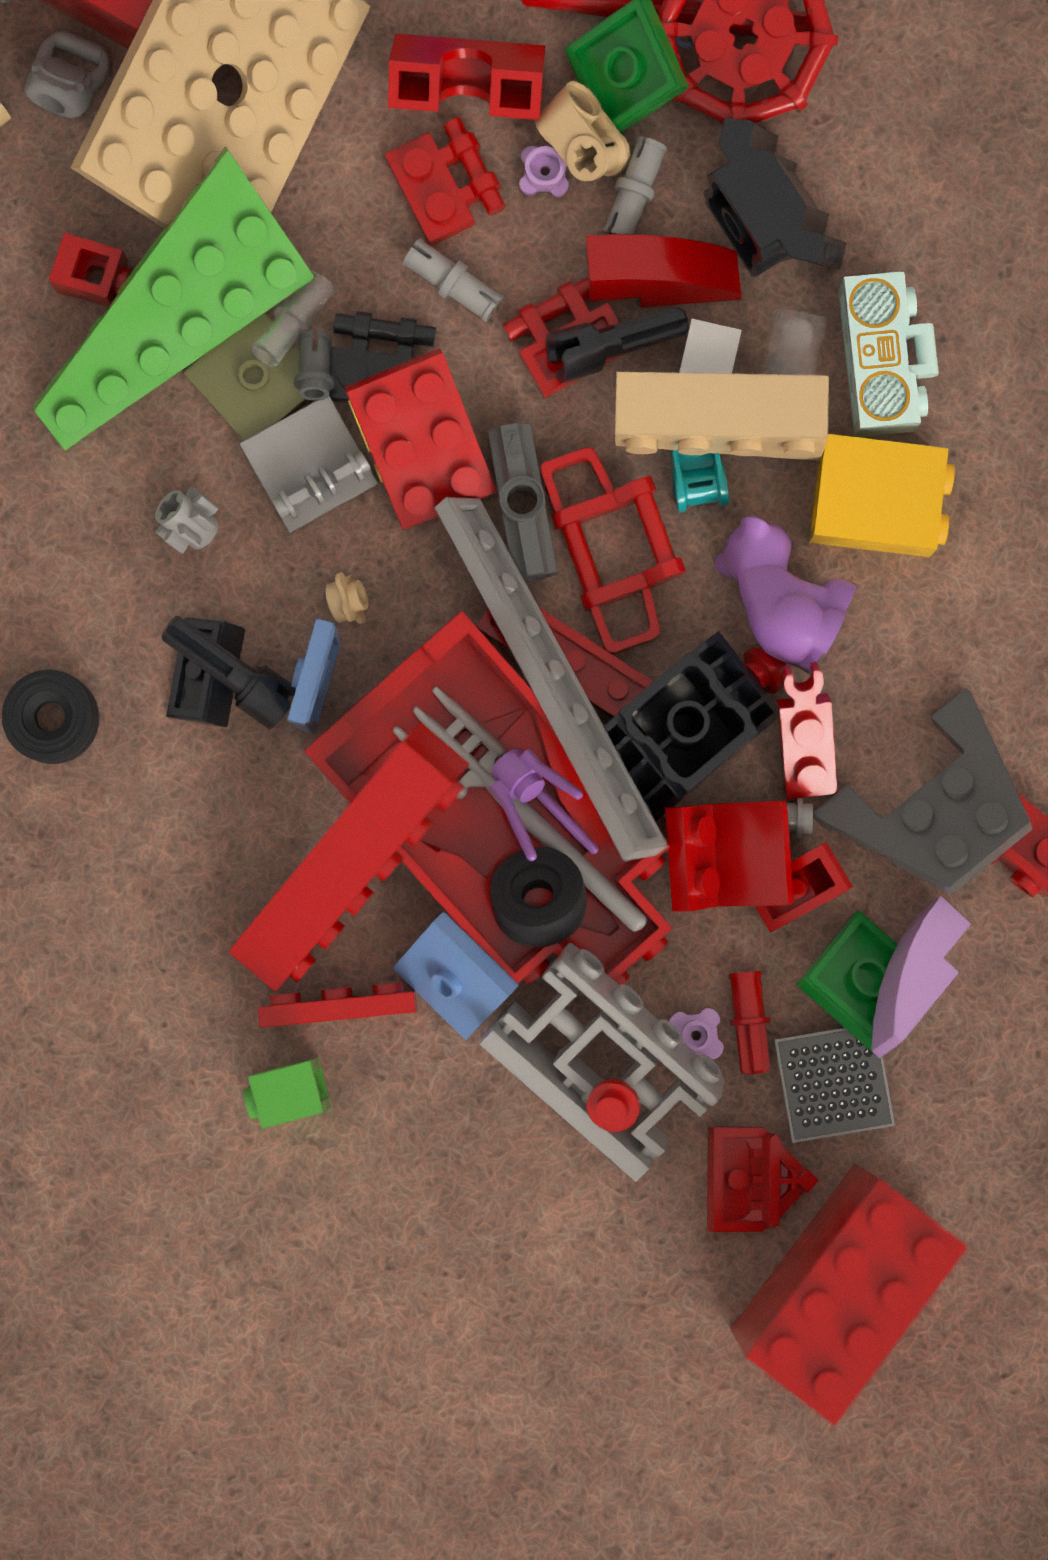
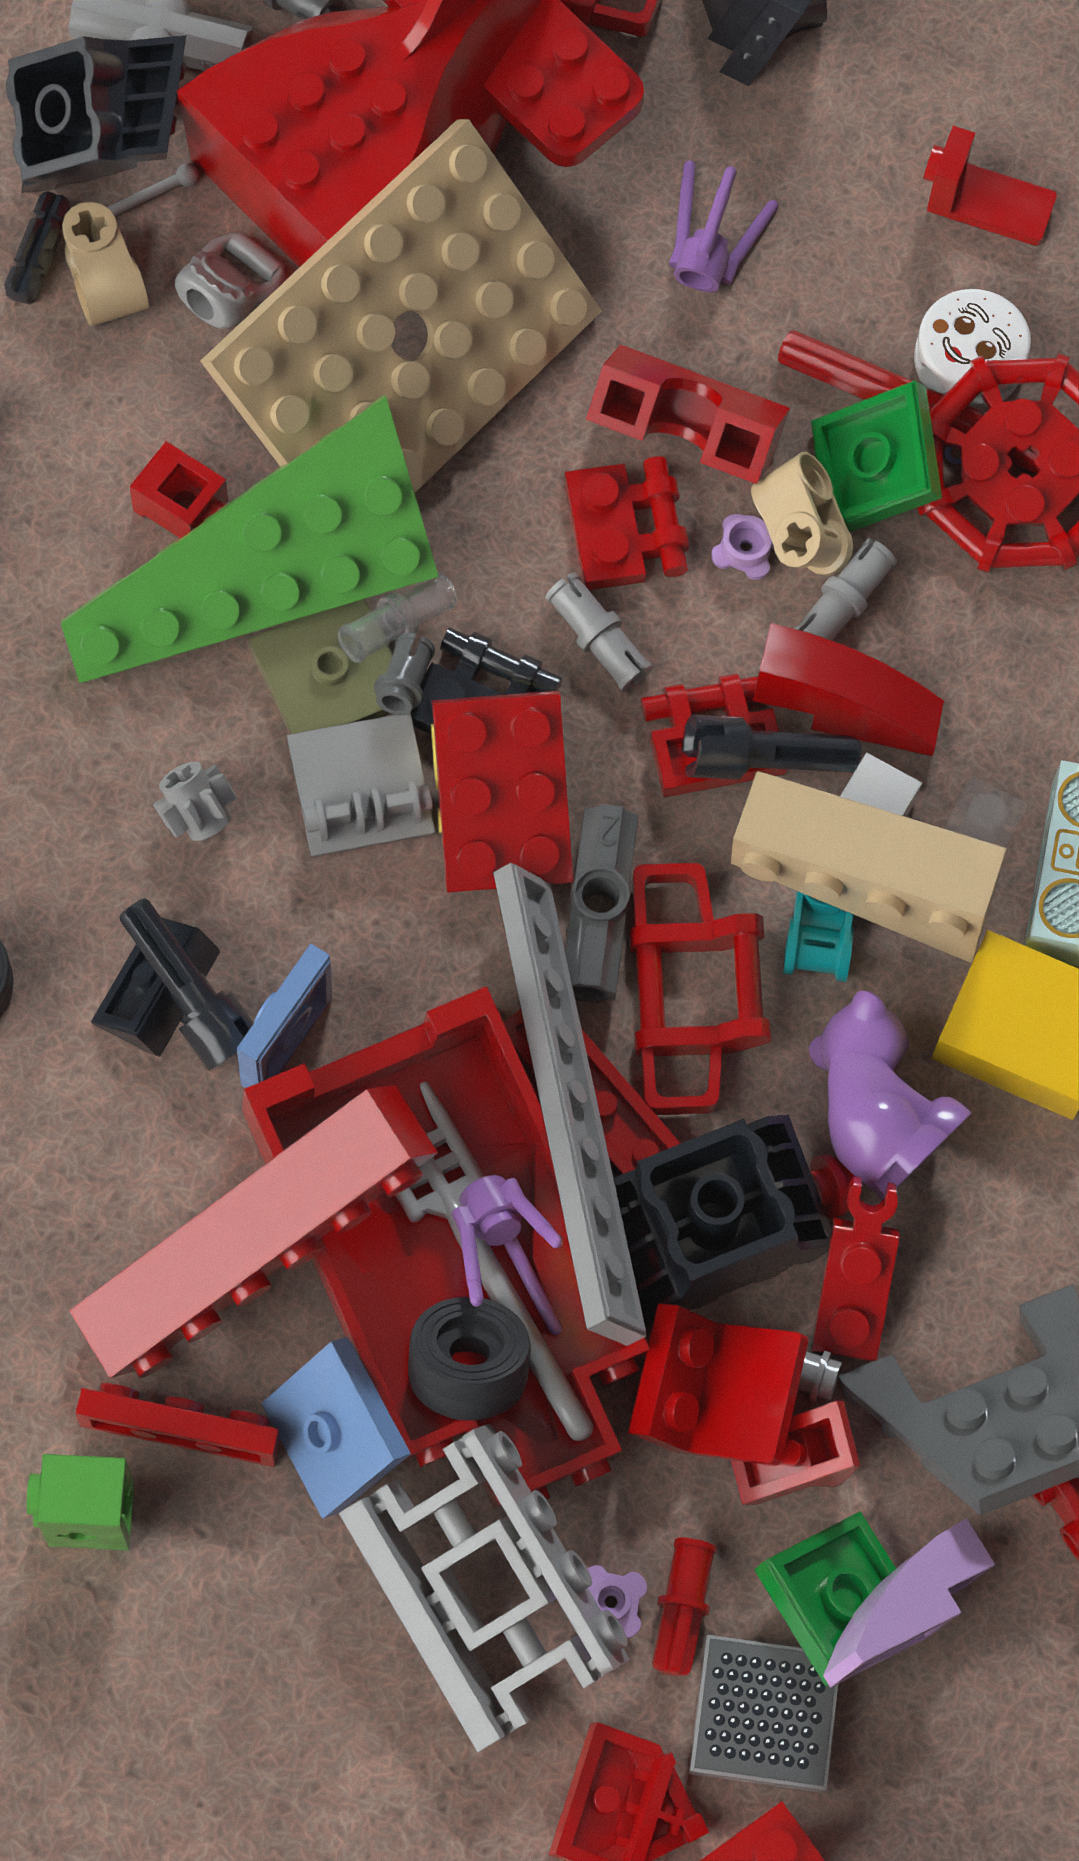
camera: 10 degrees right, 15 degrees down
(347, 599) = (353, 949): tan plate -> none
(613, 1105) = (479, 1638): red plate -> none
(765, 203) = (992, 654): black slope -> none

